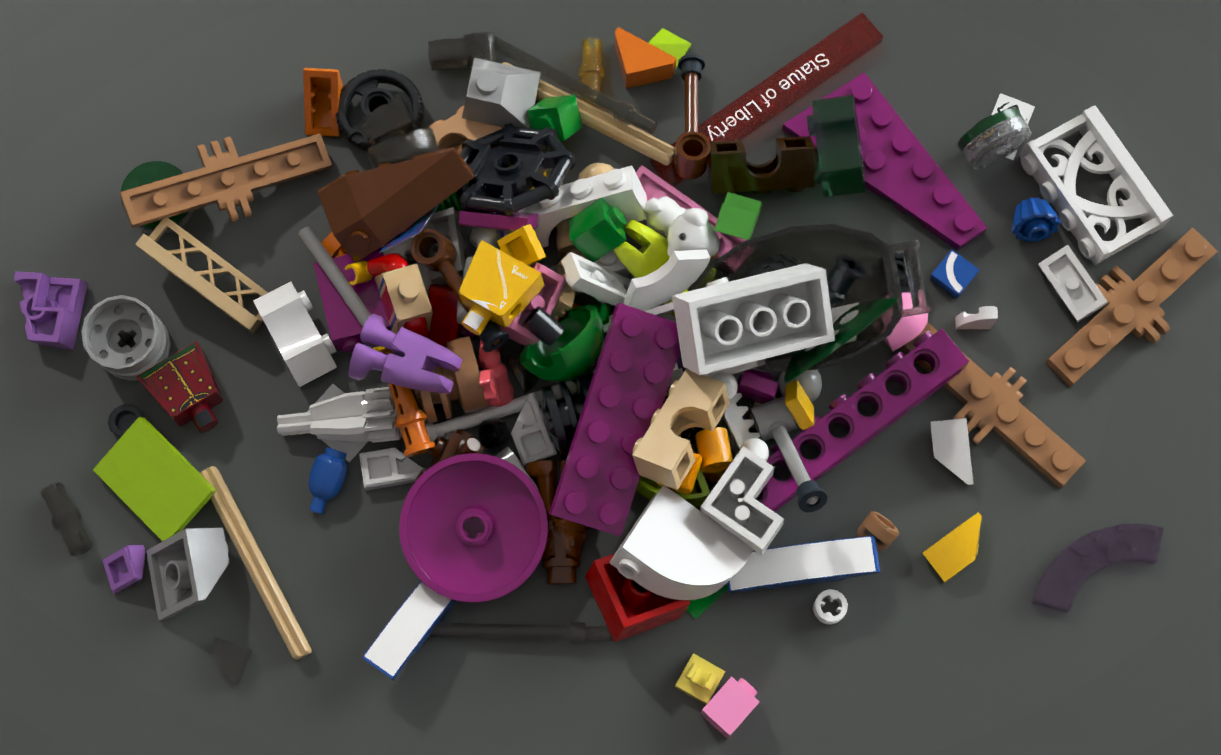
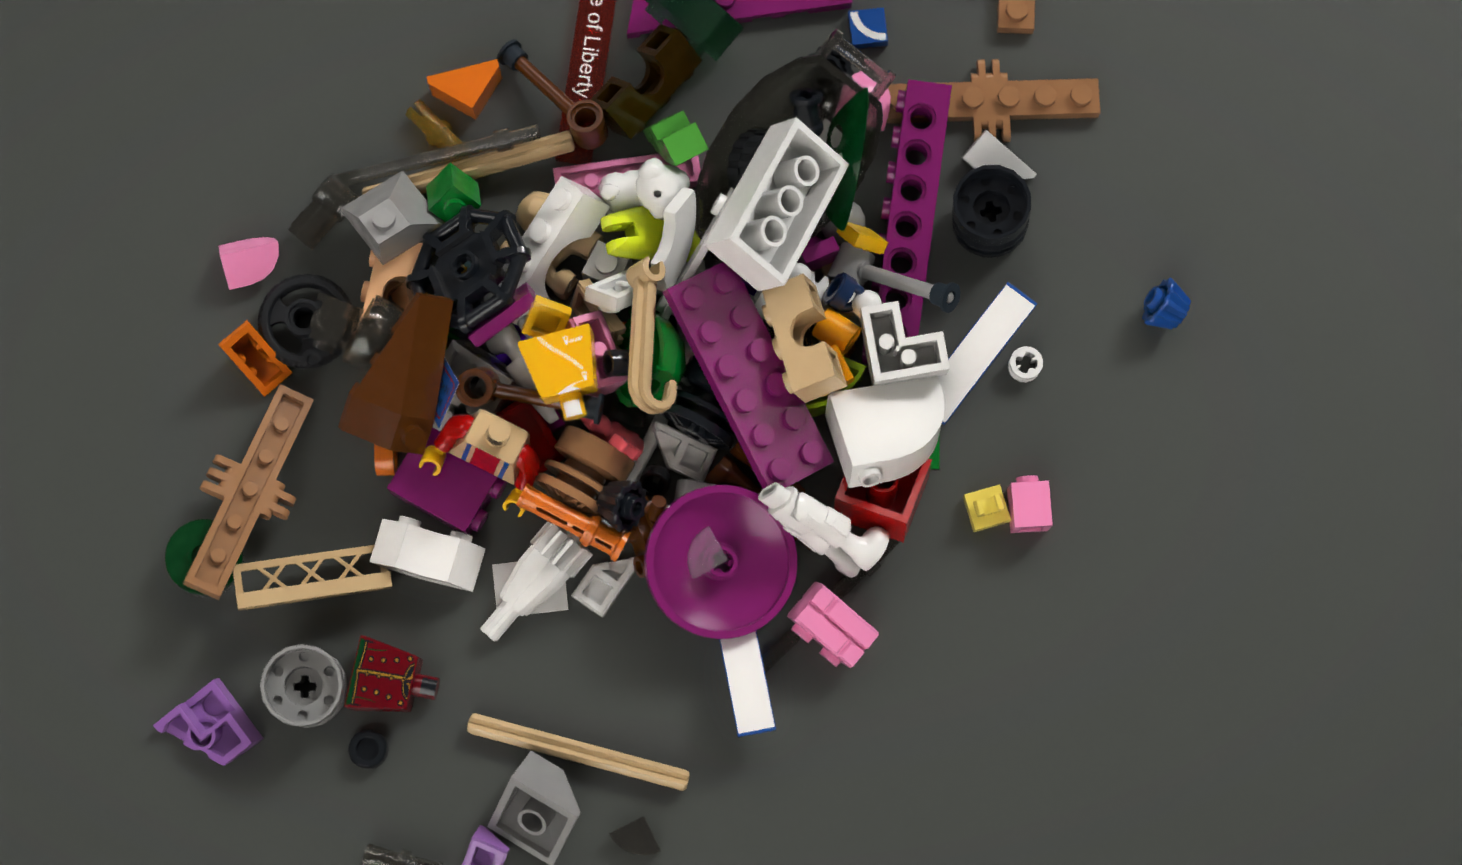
camera: 45 degrees left, 5 degrees up
(154, 479) = (439, 769): lime tile -> none
(327, 478) = (566, 637): blue plant -> none
(334, 274) = (428, 482): light grey bar -> none
(383, 38) = (248, 260): none -> bright pink brick
(411, 361) = (552, 486): medium lavender piece -> none
(447, 422) = (622, 504): none -> black piece
(465, 509) = (704, 553): none -> clear tile
(506, 649) = (832, 625): none -> bright pink brick
(565, 575) = (824, 529): none -> white piece
(568, 322) = (644, 286): none -> tan piece
(597, 229) = (585, 250): green brick -> none
(670, 44) = (475, 51): lime slope -> none
(744, 425) = (840, 292): none -> dark blue tile
(880, 528) = (1004, 271): medium nougat tile -> none
(913, 456) = (997, 192): none -> black wheel
(955, 549) = (1071, 234): yellow slope -> none
(974, 665) = (1166, 305): none -> blue piece
(983, 320) = (925, 41): white tile -> none
(1091, 553) = (1165, 144): clear purple tile -> none

